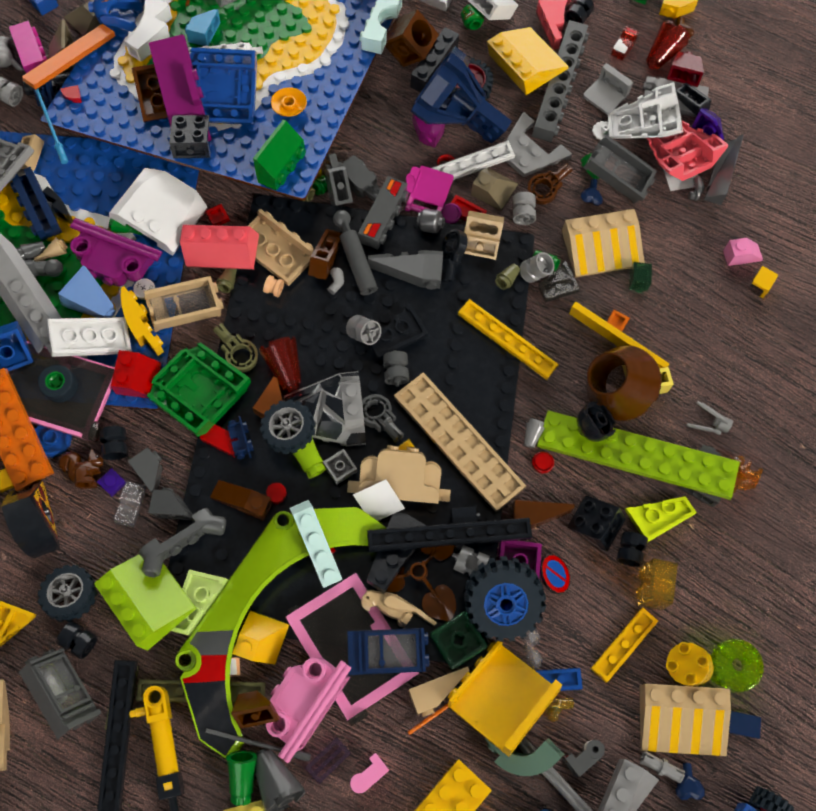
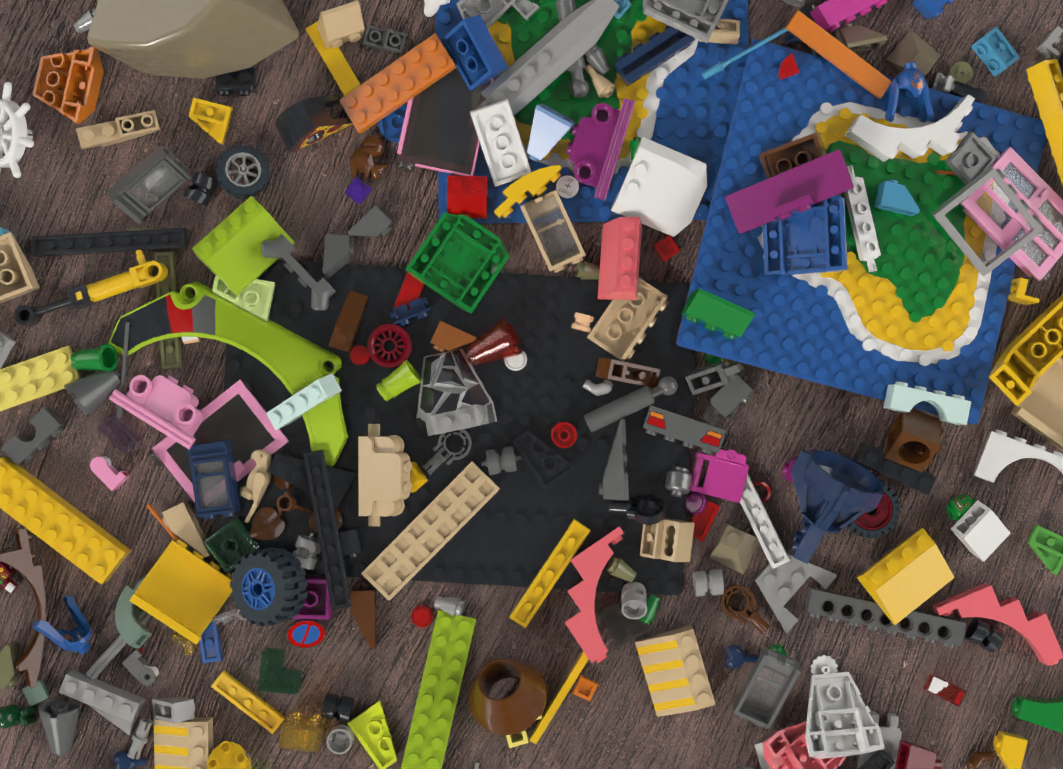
camera: 90 degrees right, 20 degrees up
(52, 378) = (446, 114): black wheel -> none
(58, 205) = (651, 80): black slope -> none
(113, 443) = (395, 186): black wheel -> none
(130, 504) = (337, 212): clear slope -> none
(190, 136) = (738, 211): black bracket -> none
(229, 350) = (516, 283): olive pin -> none
(253, 710) = (149, 362): reddish brown slope -> none
(261, 638) = (217, 359): yellow slope -> none
(269, 479) = (372, 345): none -> dark red wheel
(288, 102) = (806, 312): light orange dish -> none
(302, 435) = (417, 340): black wheel -> none
(304, 349) = (516, 362): none -> white piece
(340, 466) = (391, 414): light grey piece -> none
(363, 329) = (538, 423): light grey wheel -> none
(377, 308) = (563, 434): none -> red wheel
(379, 500) = (355, 457): white sticker -> none
(503, 300) = (590, 567): none -> coral arch
(595, 422) = (456, 669): black cylinder -> none
(597, 521) = (363, 672): black bracket -> none
(599, 612) = (274, 676): none -> clear green panel
(608, 89) = (875, 671): light grey bracket -> none
(631, 725) = (173, 709): none -> light grey slope
(640, 276) = (638, 712): clear green brick -> none
(665, 544) = (340, 738): none -> light grey wheel
(667, 44) = (944, 739): clear red cone -> none

